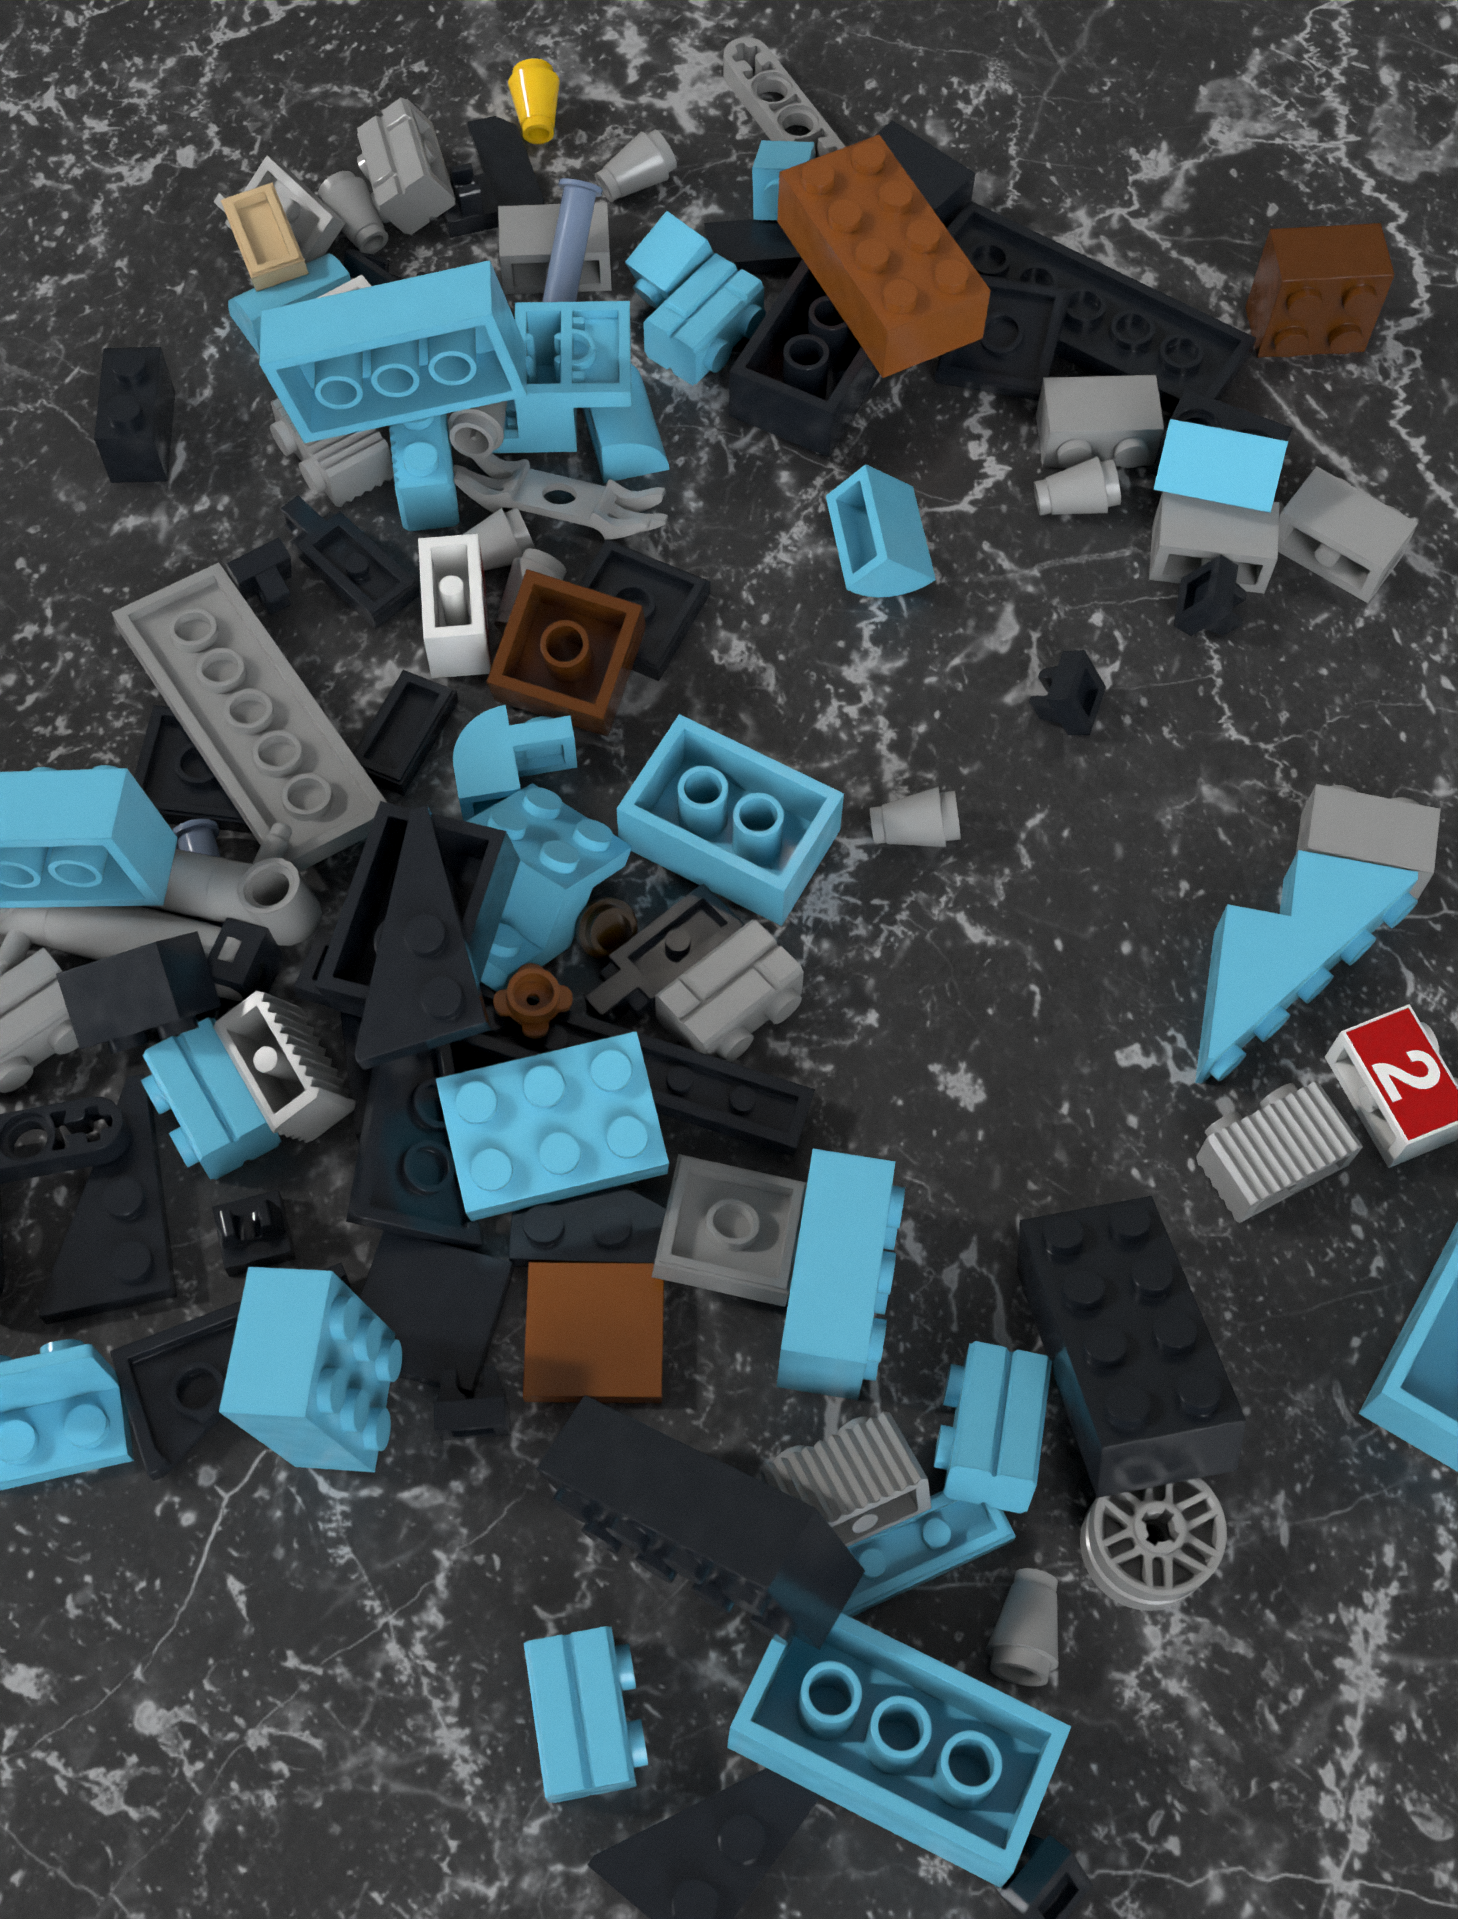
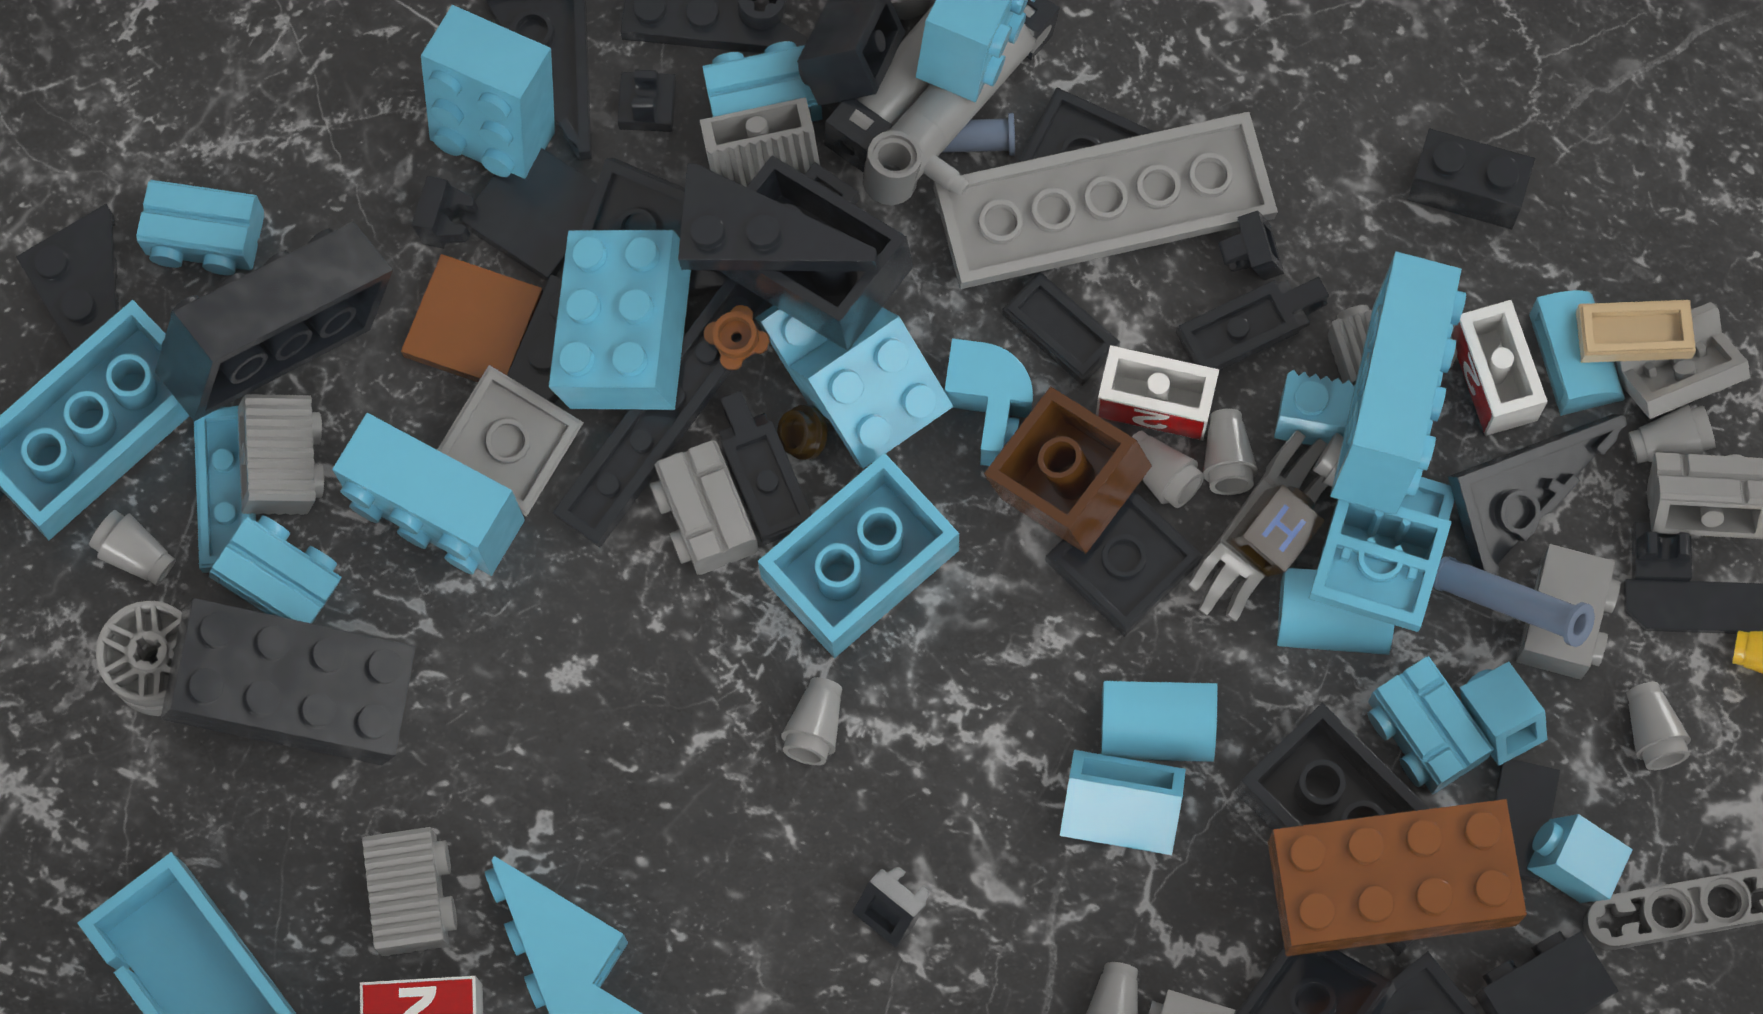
camera: 115 degrees right, 10 degrees up
(564, 466) = (1276, 529): none -> brick
(785, 529) = (1159, 720): none -> medium azure brick

